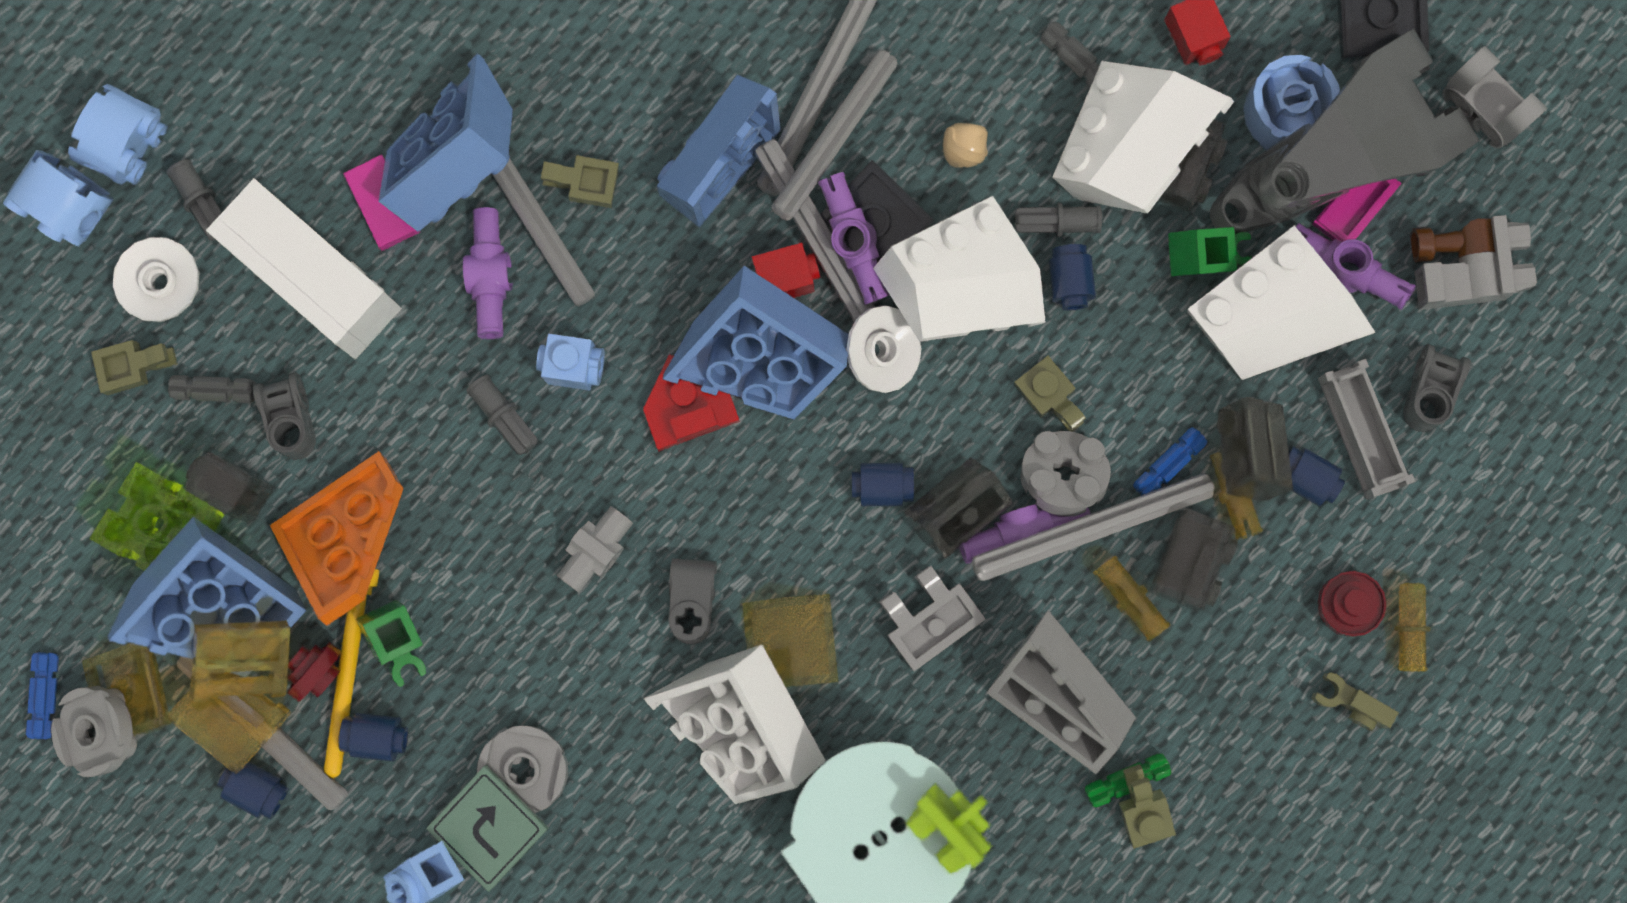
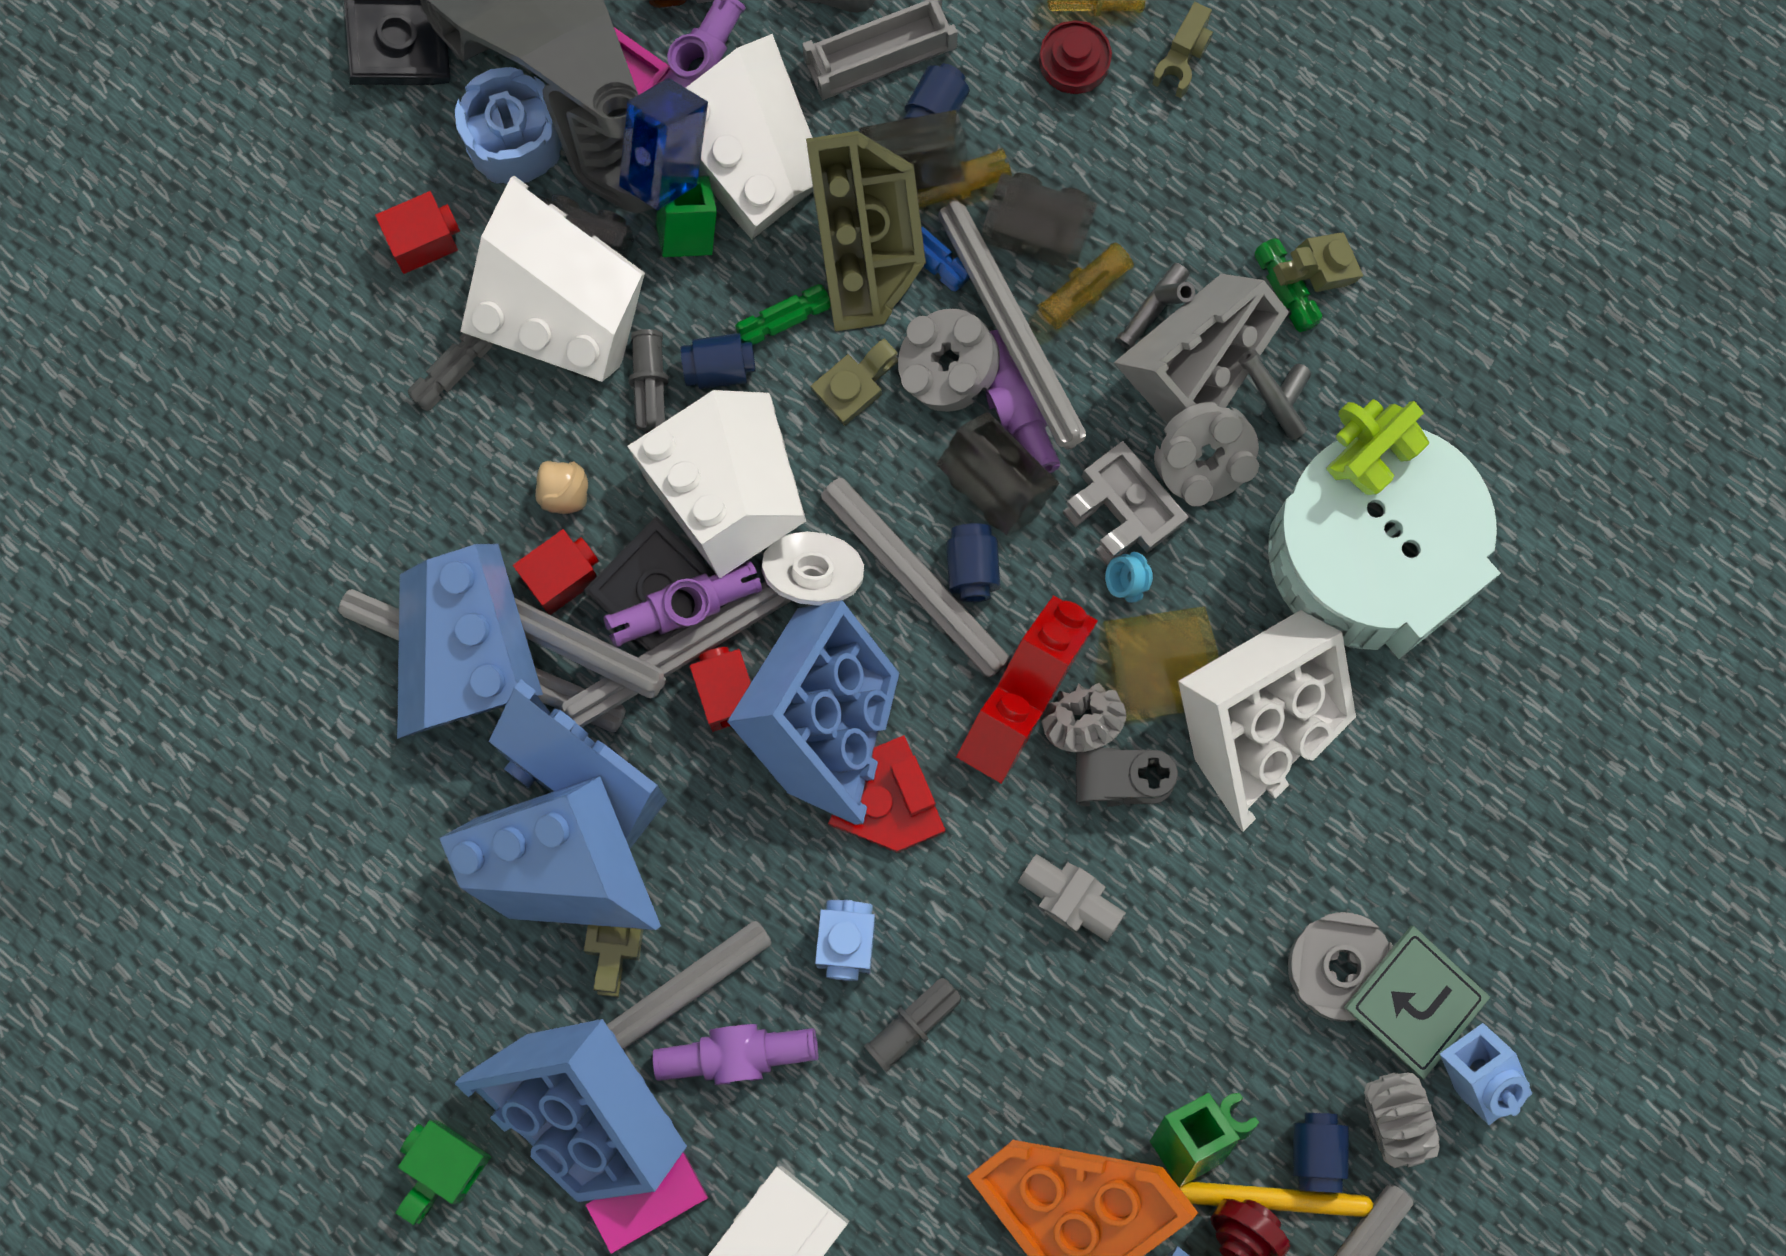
camera: 100 degrees left, 5 degrees down
(391, 803) = (1402, 1119): none -> light grey gear
(419, 45) = (442, 1166): none -> green brick
(646, 128) = (553, 861): none -> medium blue wedge
(728, 571) = (1089, 731): none -> light grey gear
(772, 523) = (1026, 688): none -> red arch
(830, 60) = (458, 639): none -> medium blue wedge
(864, 617) = (1129, 576): none -> medium azure plate
(875, 436) = (915, 577): none -> light grey axle
(892, 140) = (557, 570): none -> red brick
(947, 682) = (1220, 474): none -> light grey plate
(1017, 757) = (1278, 398): none -> flat silver piece
(1114, 335) = (784, 314): none -> green axle
(1121, 667) = (1170, 290): none -> flat silver piece
(1182, 402) = (865, 226): none -> olive wedge
(1254, 224) = (662, 143): none -> clear blue brick

